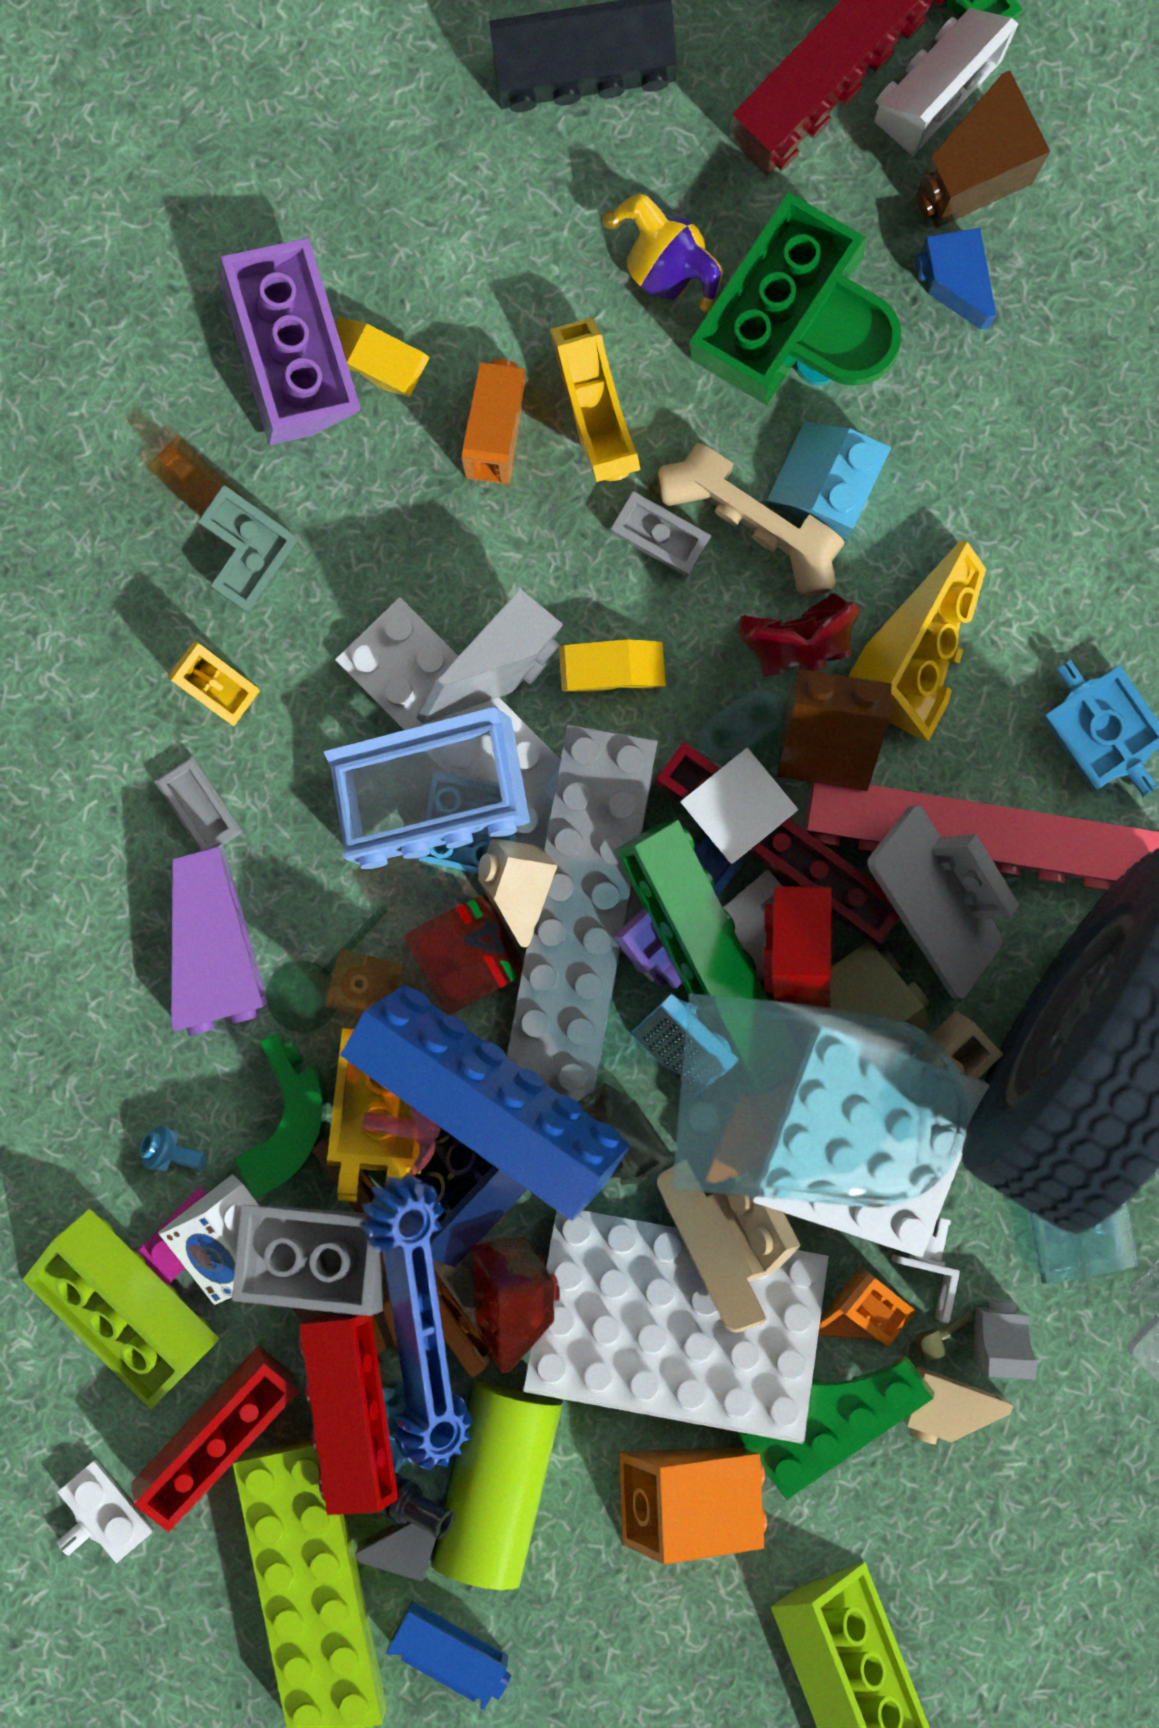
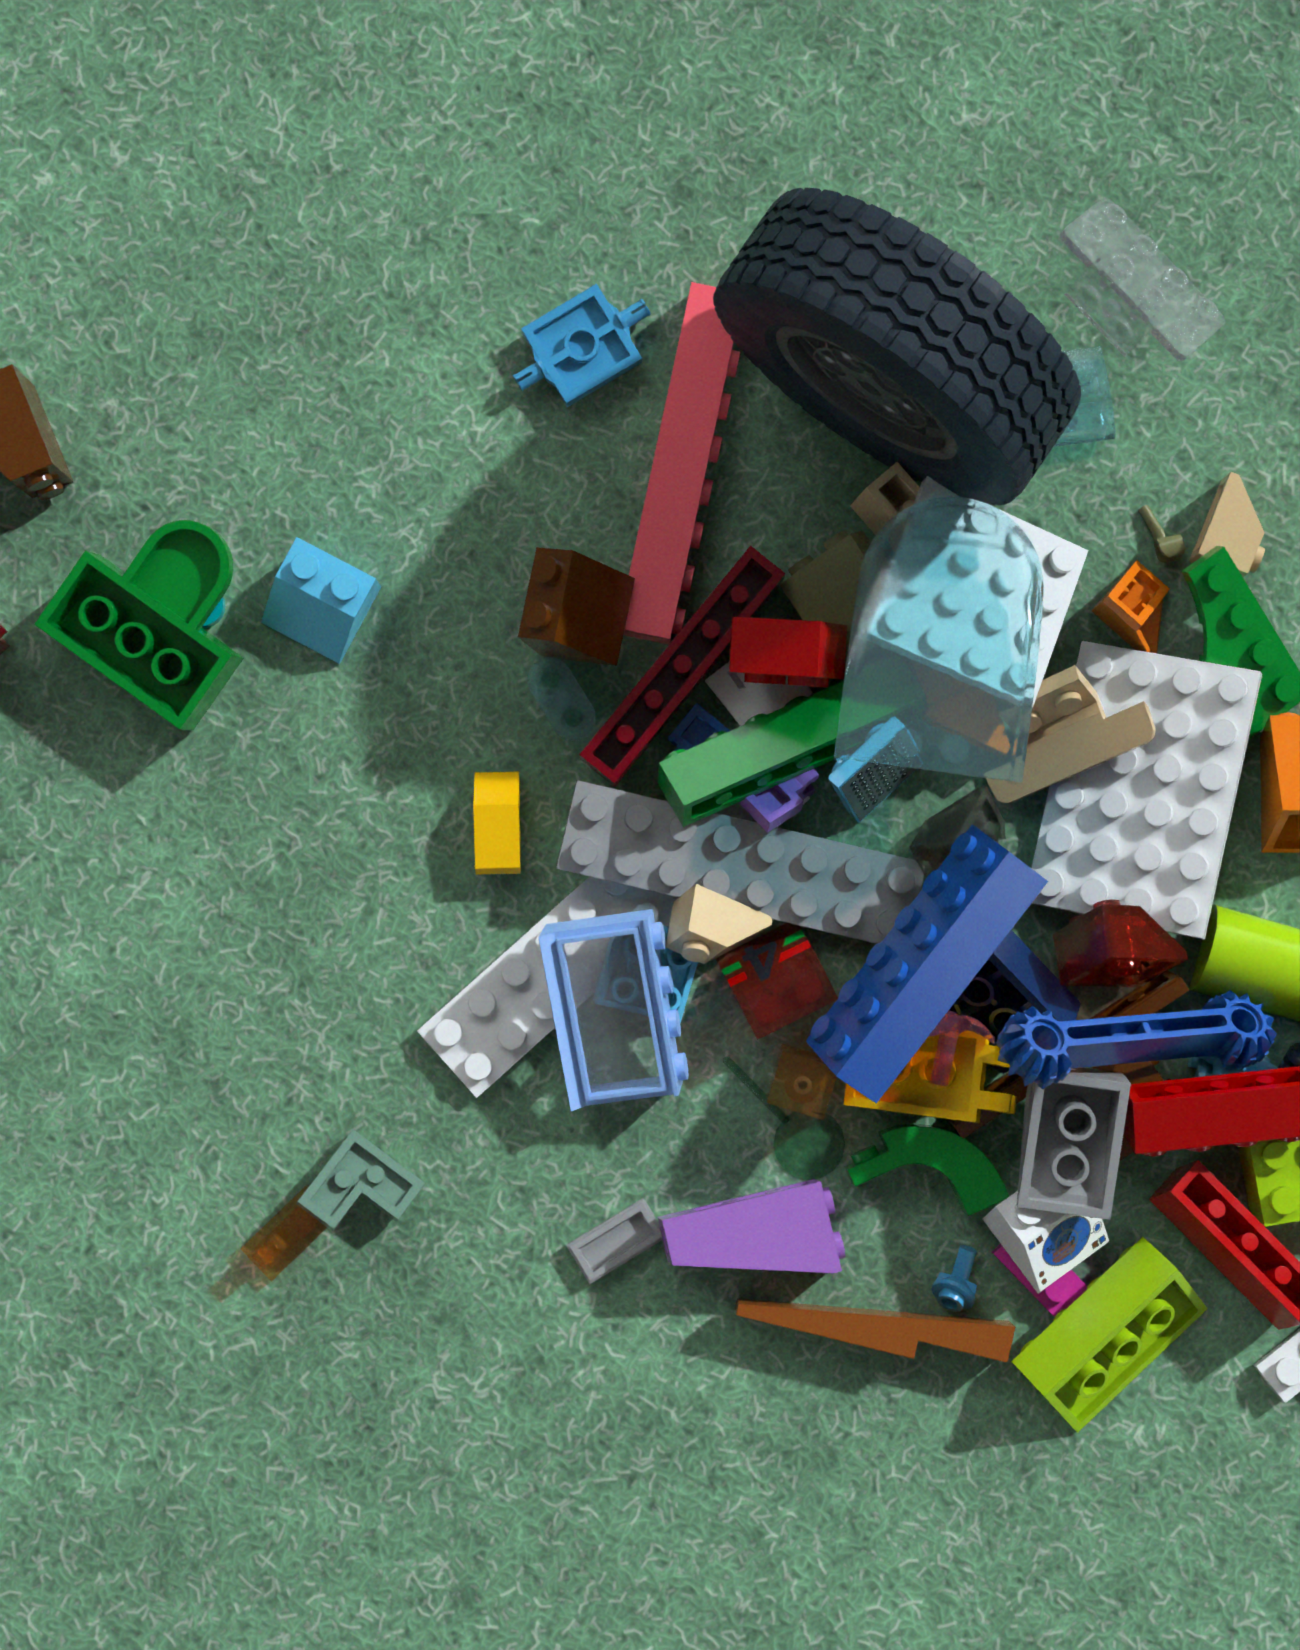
camera: 90 degrees left, 0 degrees up
(118, 1079) = (887, 1330): none -> dark orange slope
(213, 683) = (496, 1219): yellow slope -> none
(287, 340) = (152, 1132): medium lavender slope -> none
(380, 357) = (172, 1046): yellow slope -> none
(494, 422) = (245, 928): orange slope -> none
(497, 660) = (480, 922): light grey slope -> none
(594, 400) = (232, 827): yellow arch -> none
(660, 534) = (367, 769): light grey plate -> none
(667, 252) = (84, 748): piece -> none
(705, 477) = (313, 723): tan plate -> none
(739, 805) = (645, 703): white sticker -> none
(805, 641) = (485, 631): dark red brick -> none
(922, 641) = (488, 520): yellow wedge -> none
(932, 1262) = (1092, 540): white bracket -> none
(944, 896) = (742, 509): light grey bracket -> none
(958, 275) = (124, 462): blue slope -> none
(1003, 1341) = (1170, 477): light grey arch -> none

